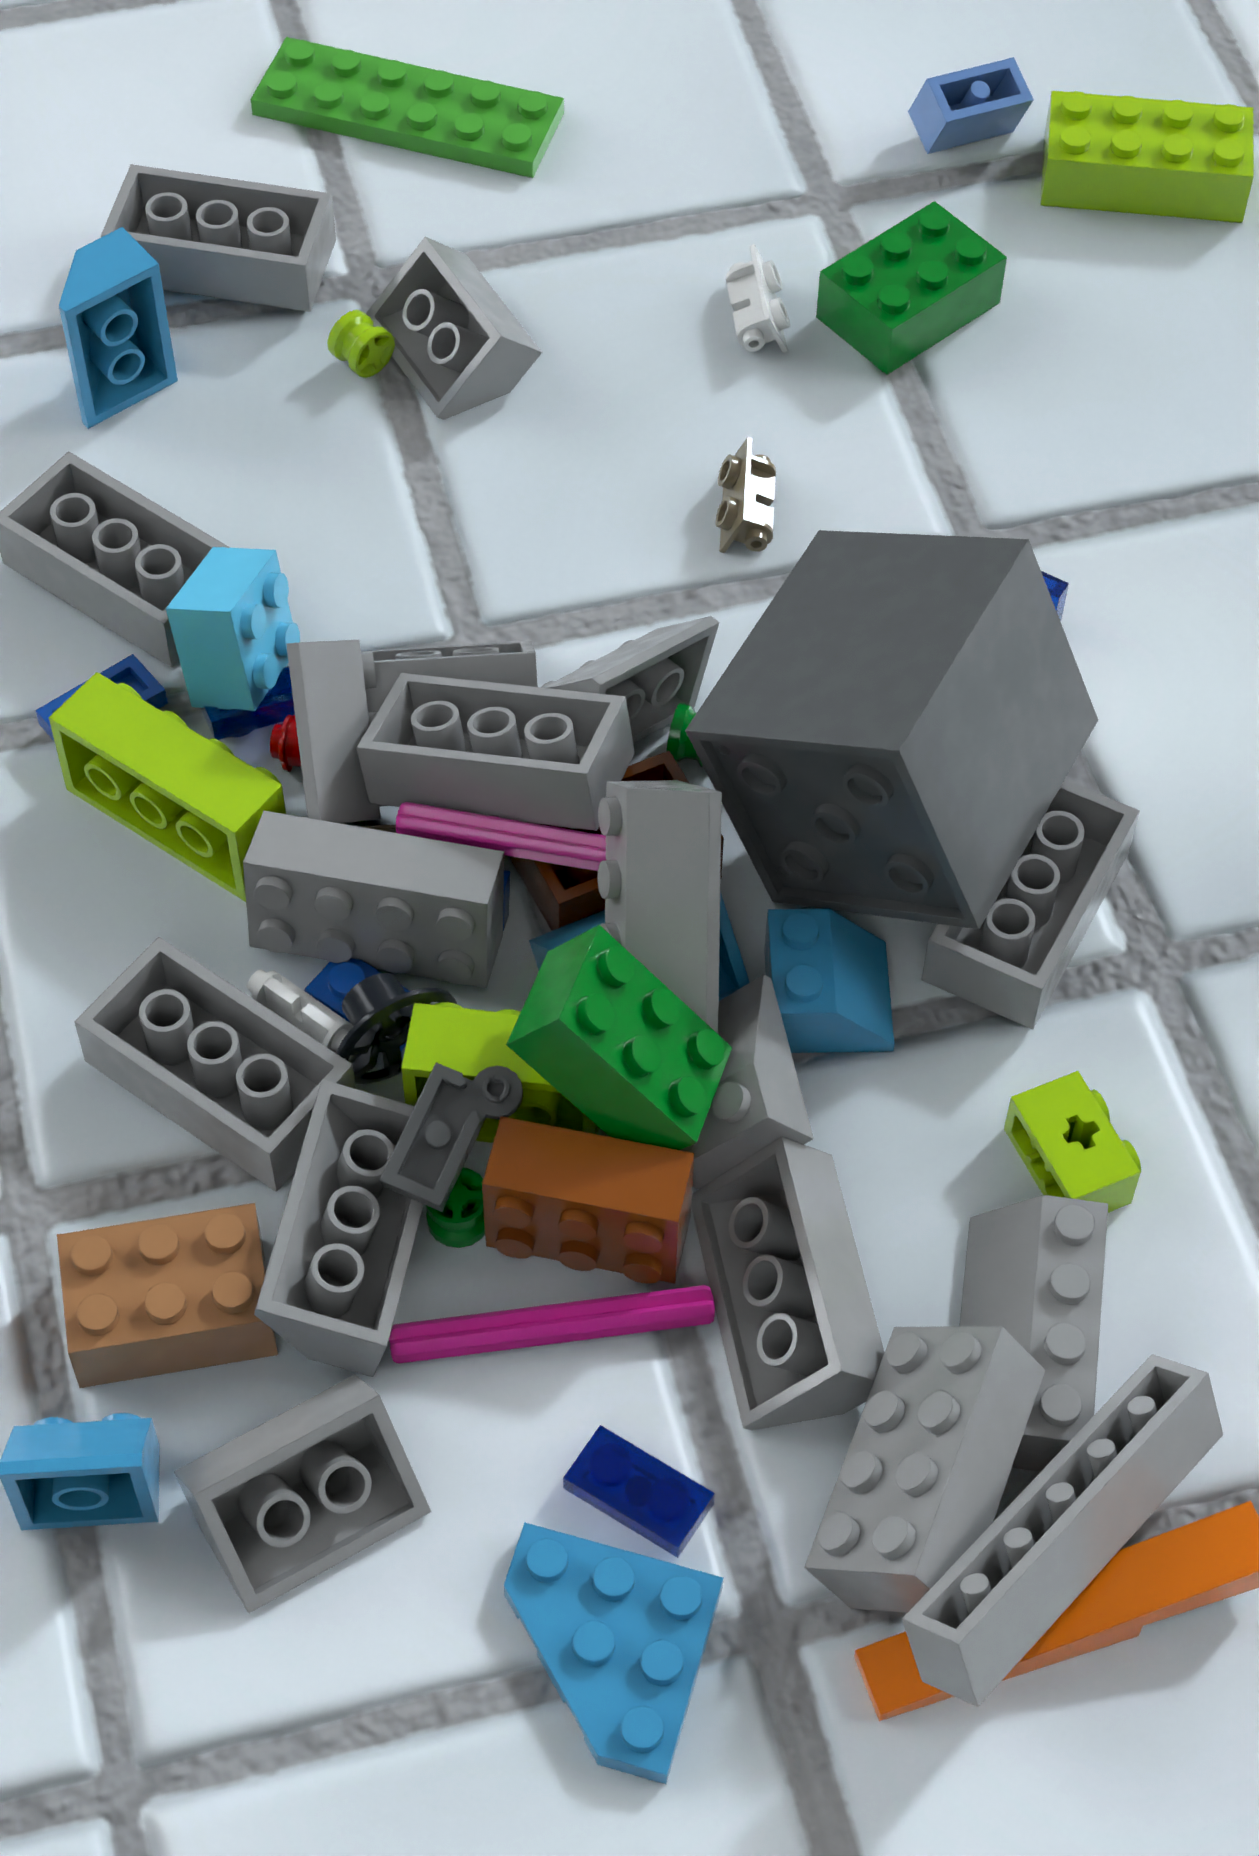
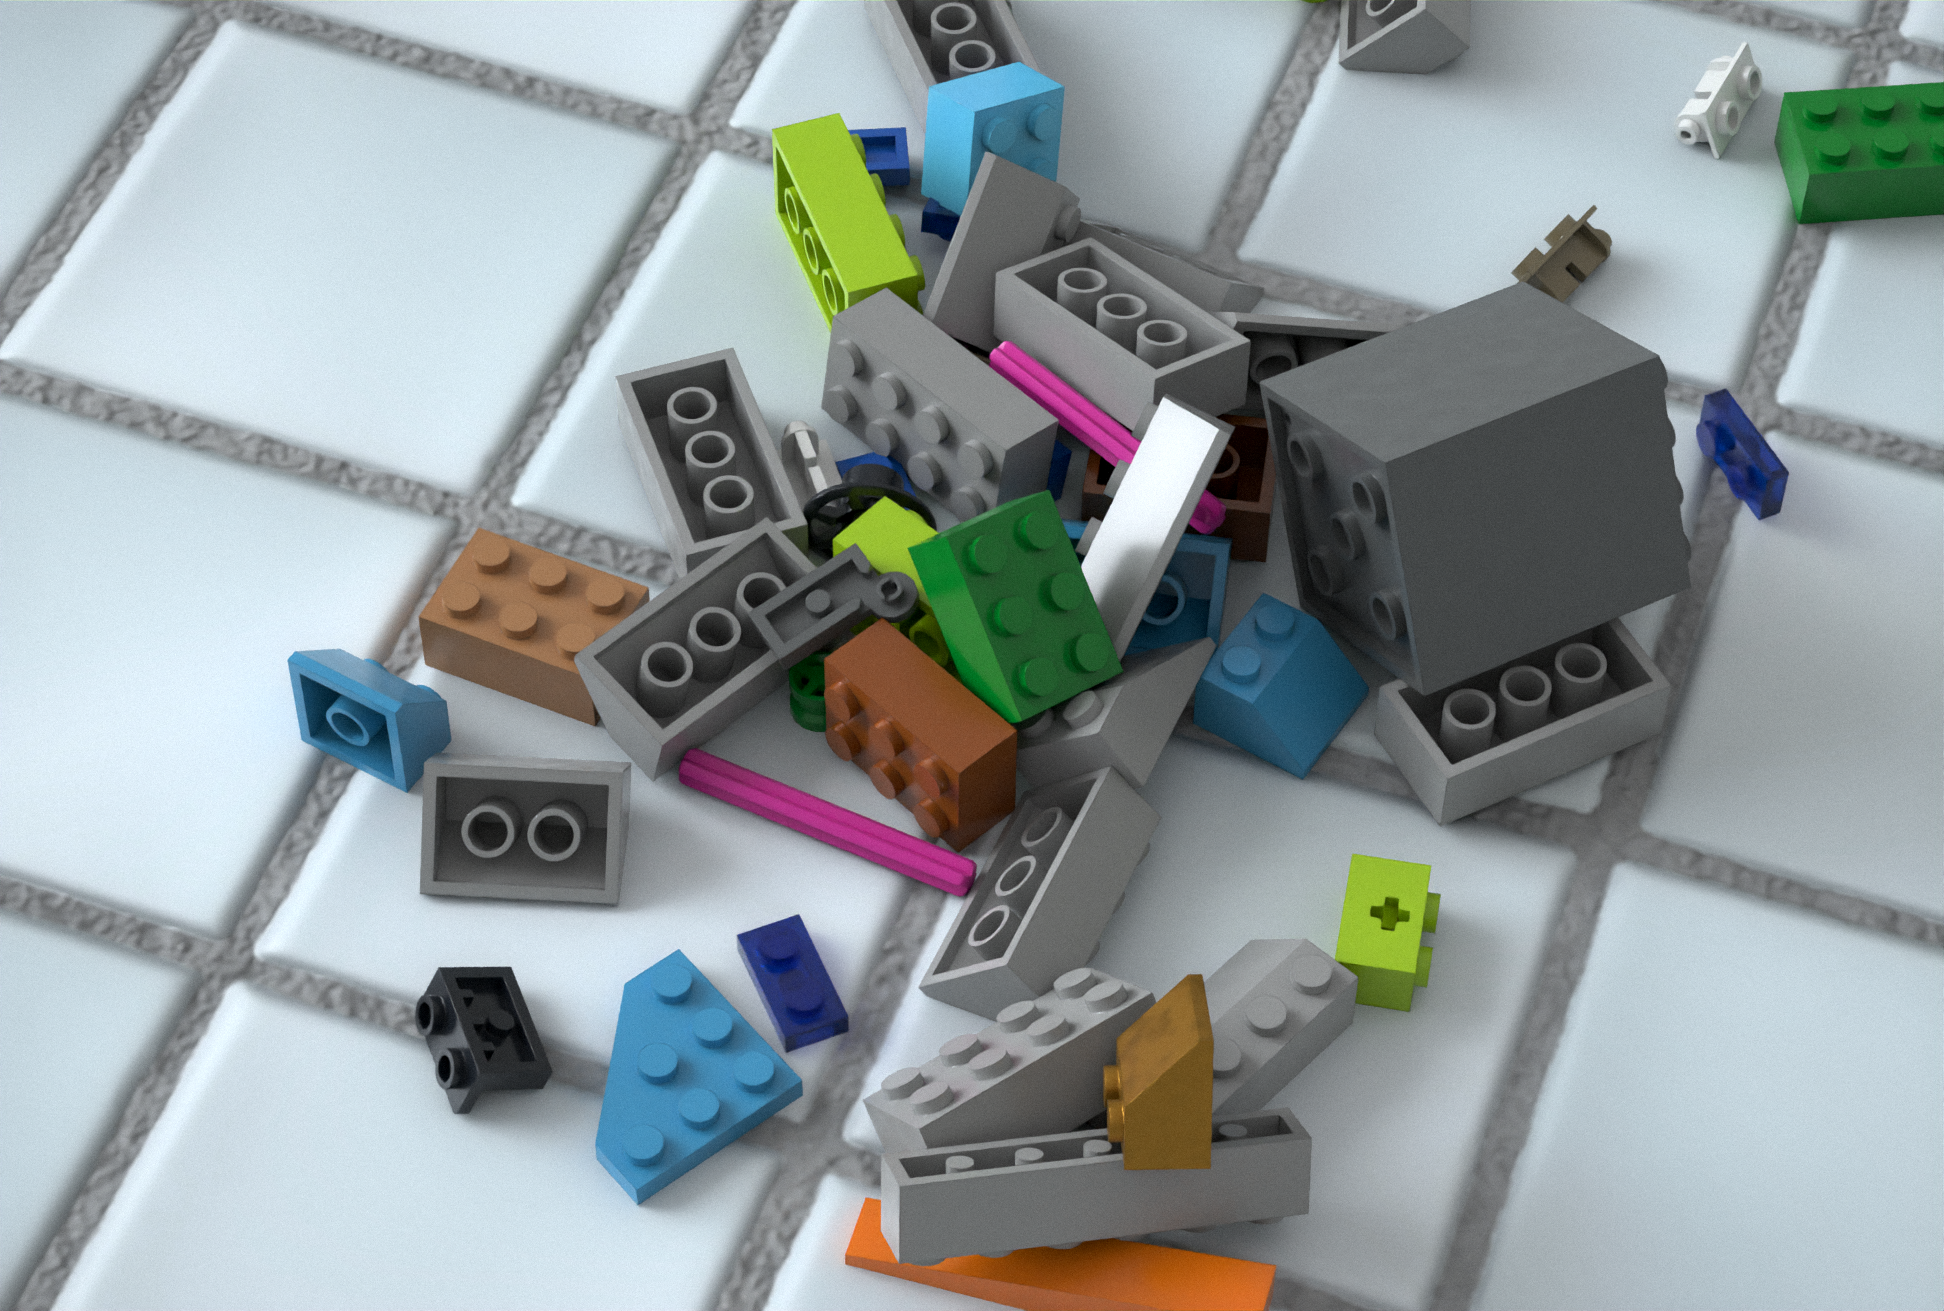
camera: 35 degrees right, 5 degrees down
(416, 1718) = (480, 1034): none -> black bracket
(1089, 1400) = (1164, 1084): none -> pearl gold slope

